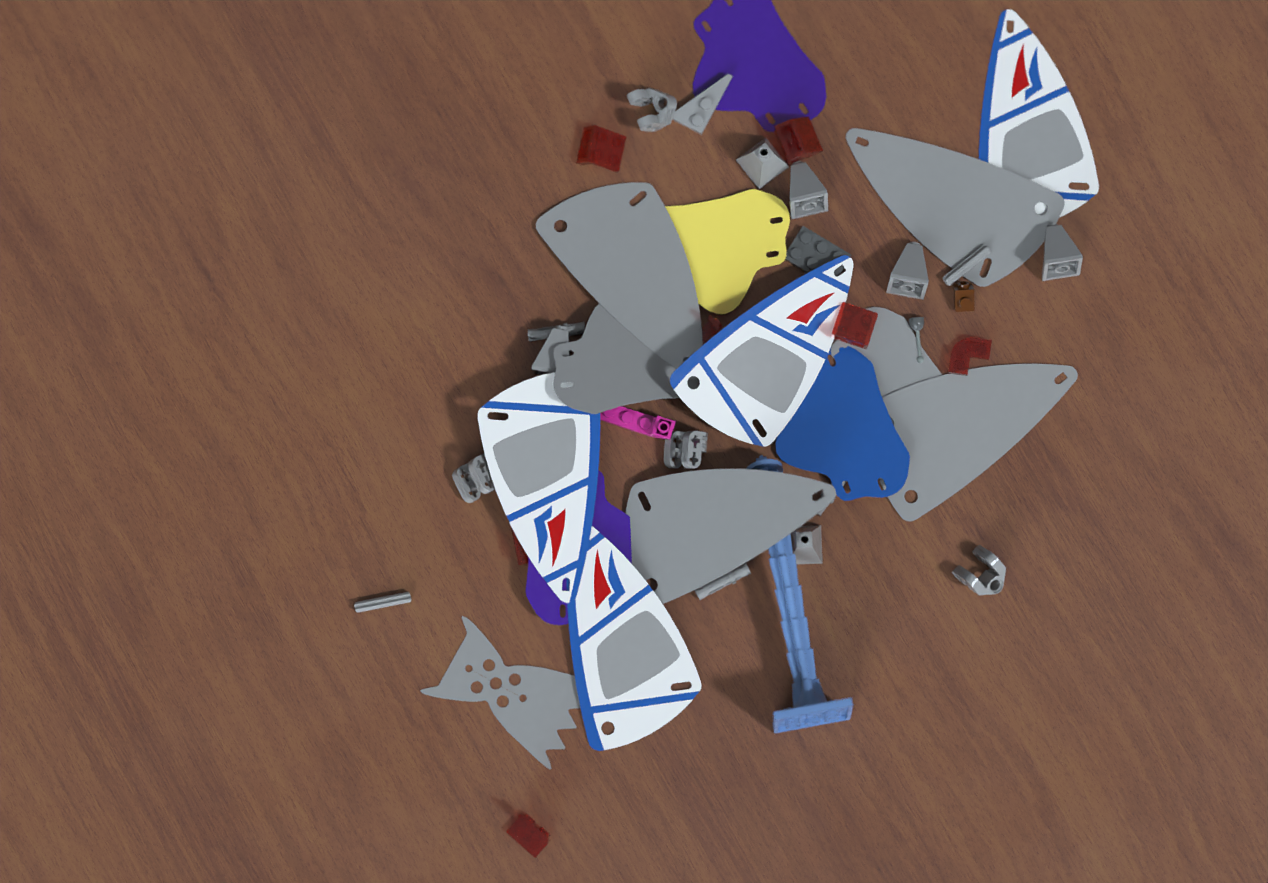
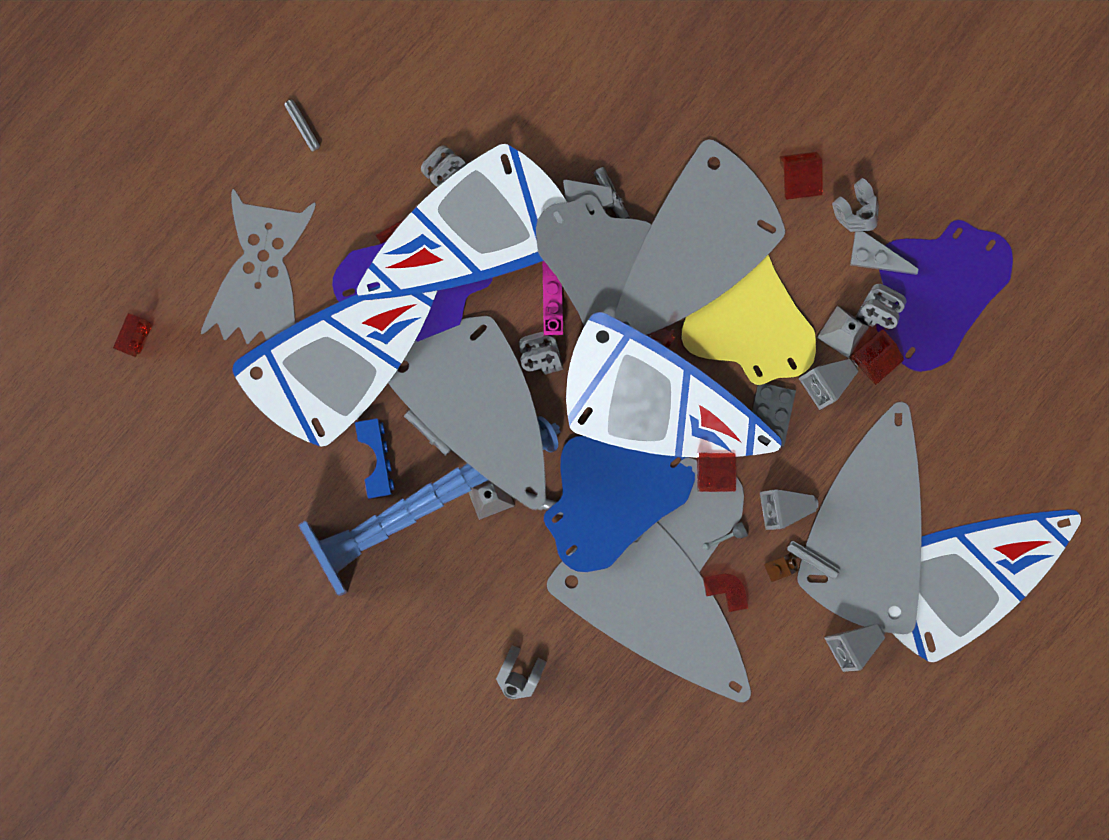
camera: 70 degrees right, 5 degrees up
(706, 636) = (379, 482): none -> blue arch
(753, 120) = (879, 308): none -> light grey piece

